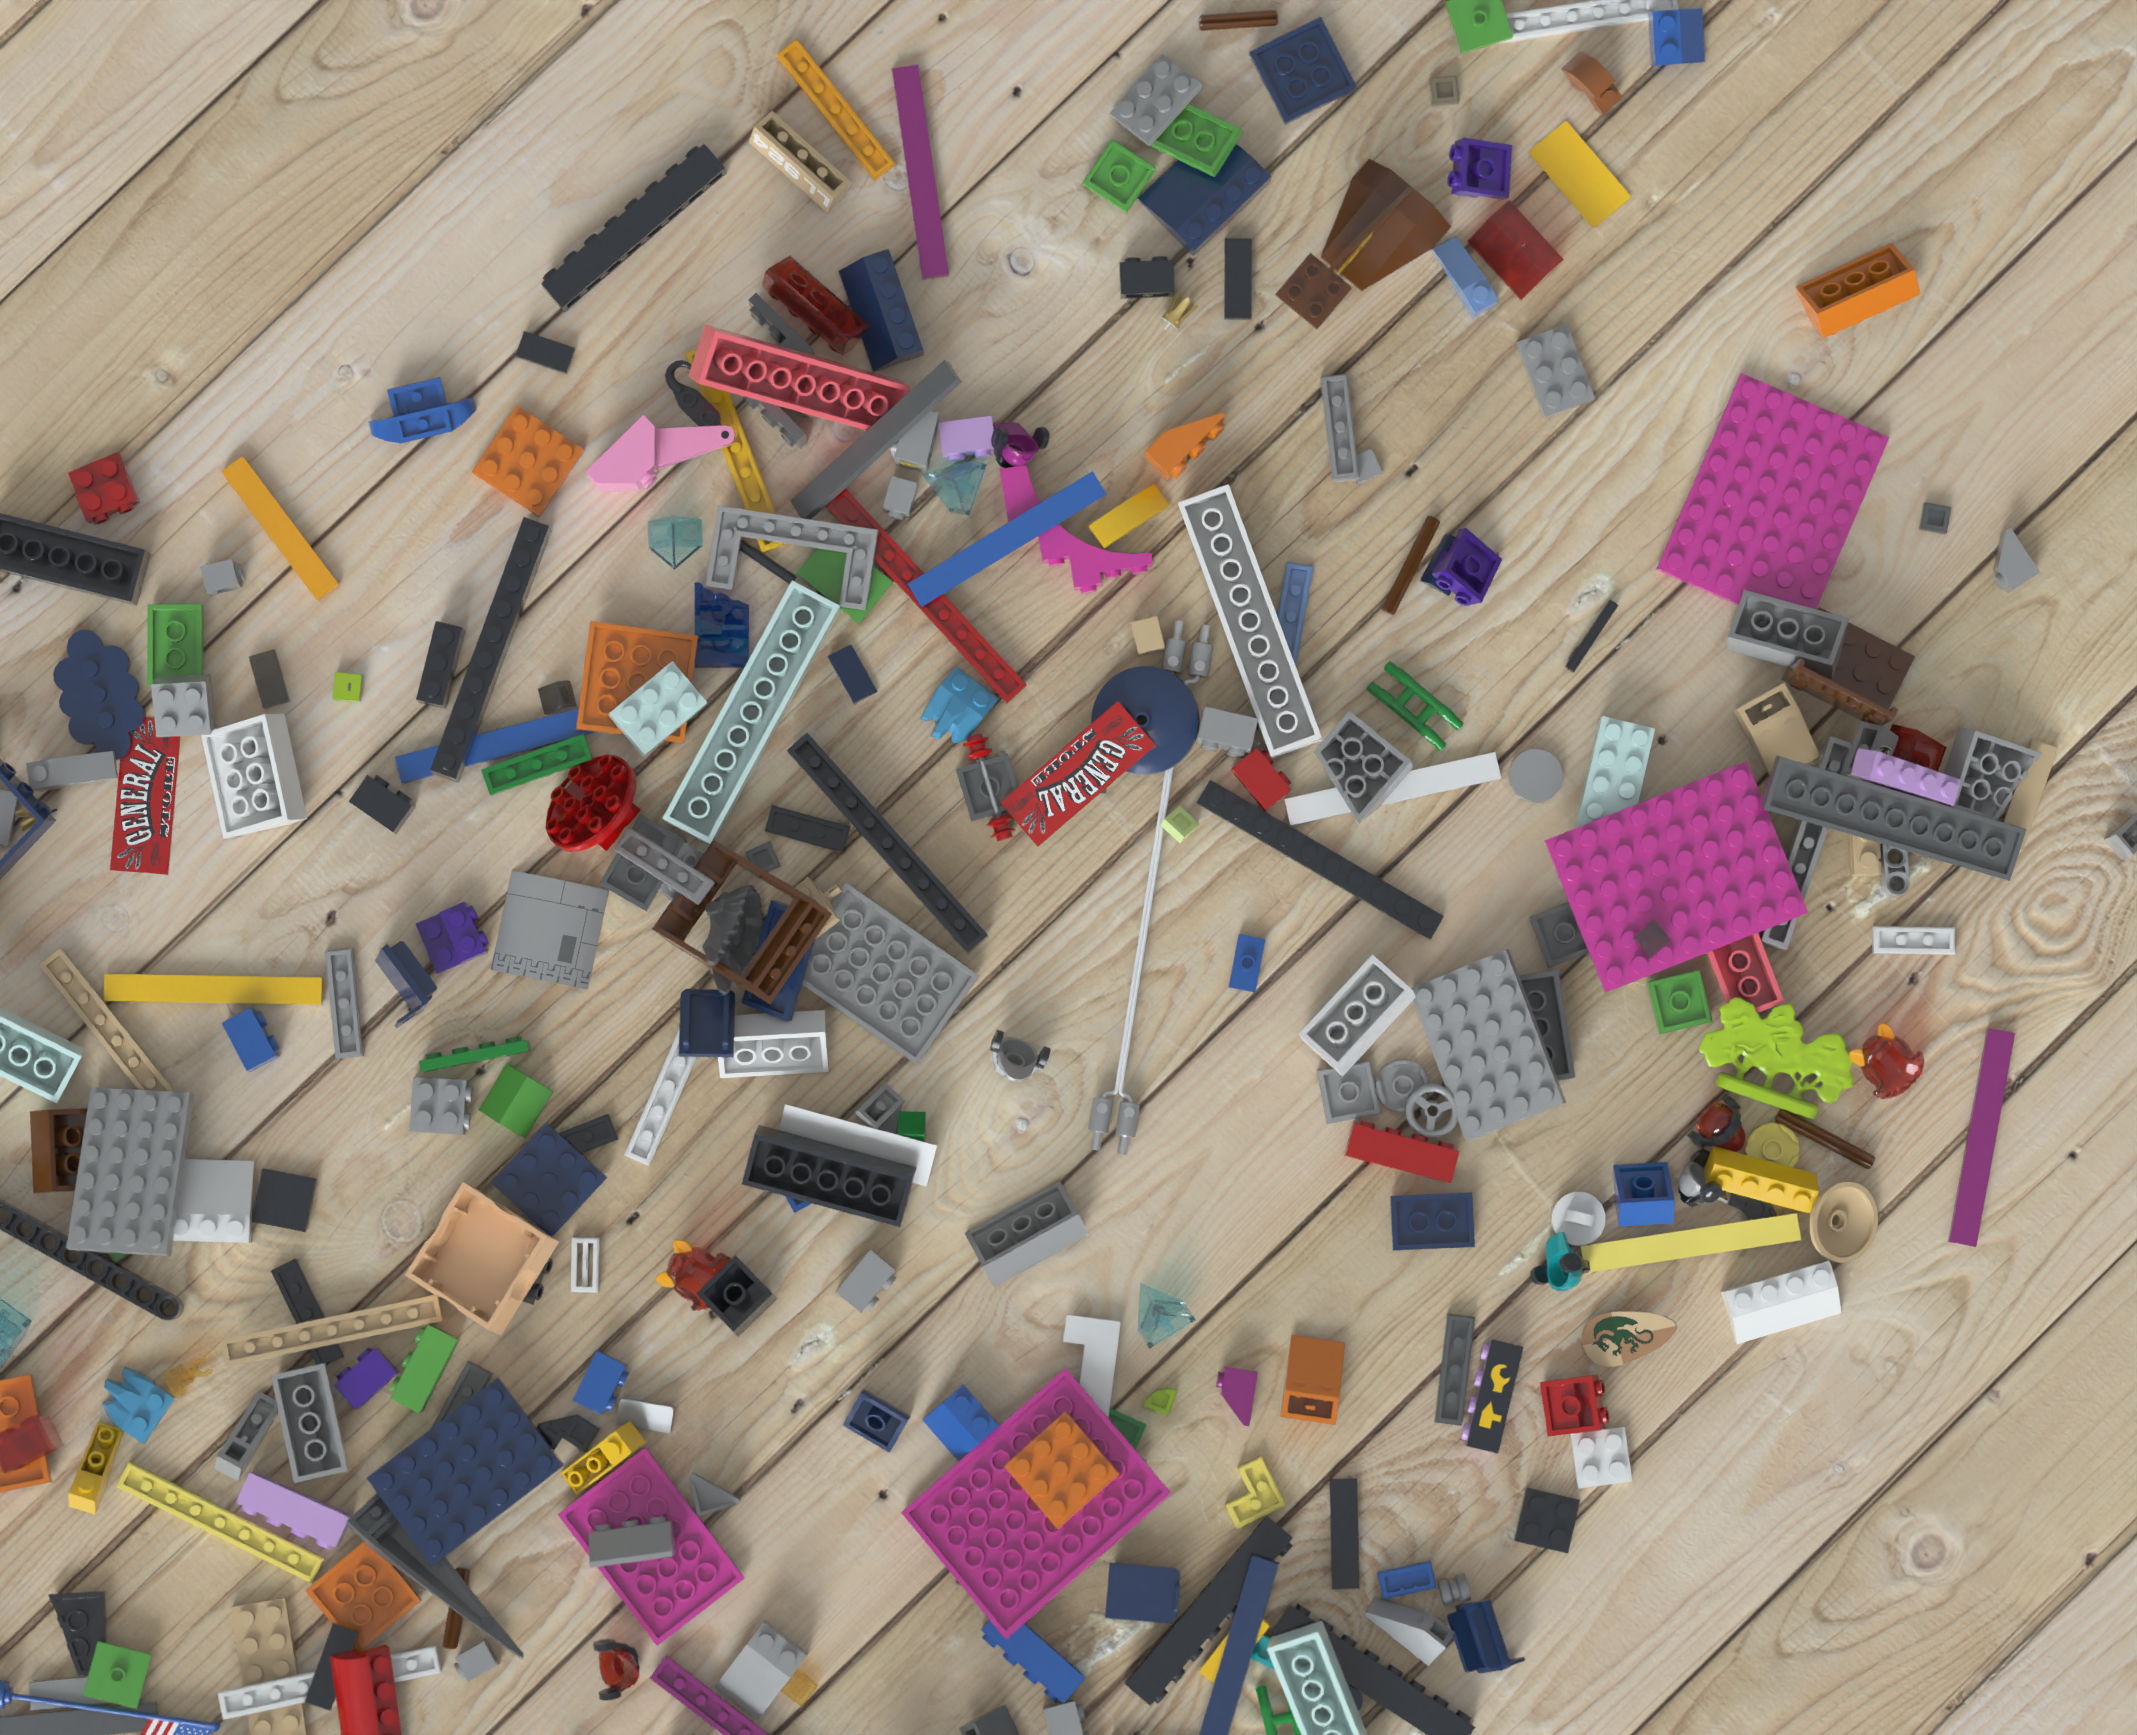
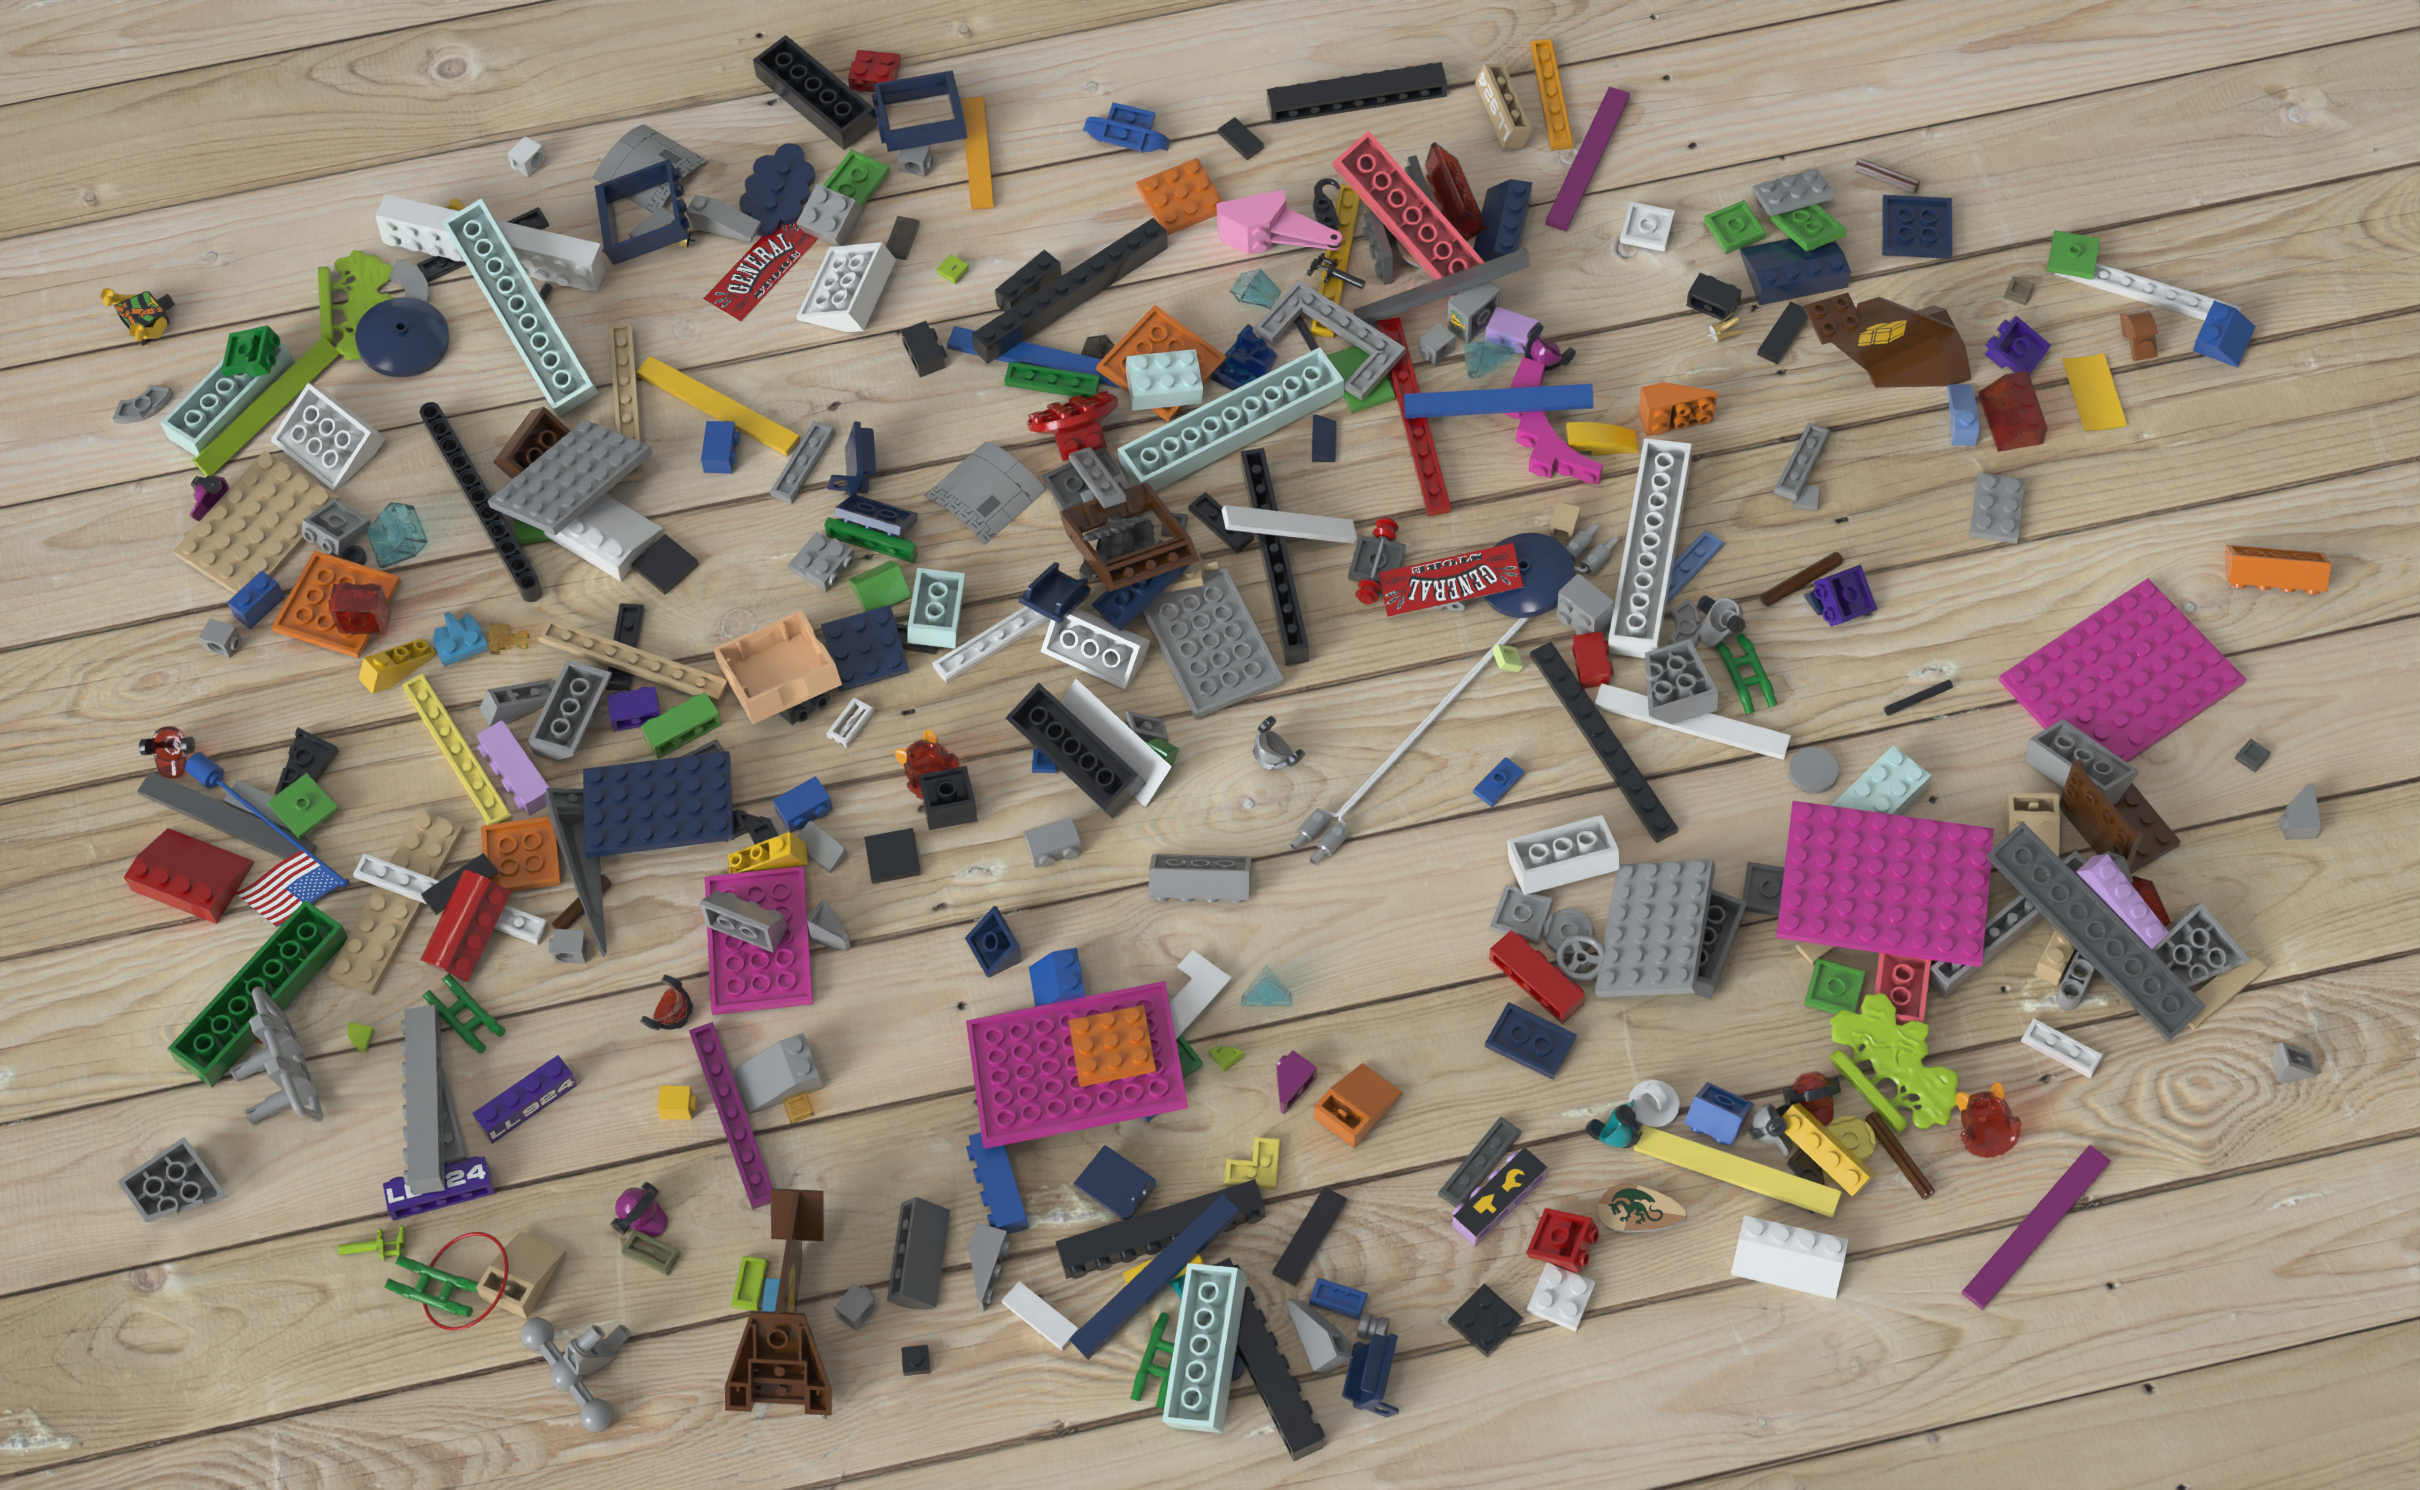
camera: 40 degrees right, 25 degrees down
(161, 491) = (912, 89): none -> dark blue window
(452, 937) = (912, 458): dark purple plate -> none
(463, 1028) = (875, 515): none -> dark blue plate
(593, 1099) = (936, 608): none -> light aqua brick
(719, 1382) = (892, 855): none -> black tile
(752, 470) = (1334, 272): none -> black piece
(887, 808) = (1289, 524): none -> white tile
(958, 706) = (1389, 497): dark azure plate -> none
(1030, 227) = (1647, 226): none -> white plate
(1331, 686) = (1687, 623): none -> light grey tile
(1364, 666) = (1723, 619): none -> light grey cap
(1651, 938) = (1837, 907): clear smoke slope -> none
(1853, 1221) = (1891, 1219): tan dish -> none

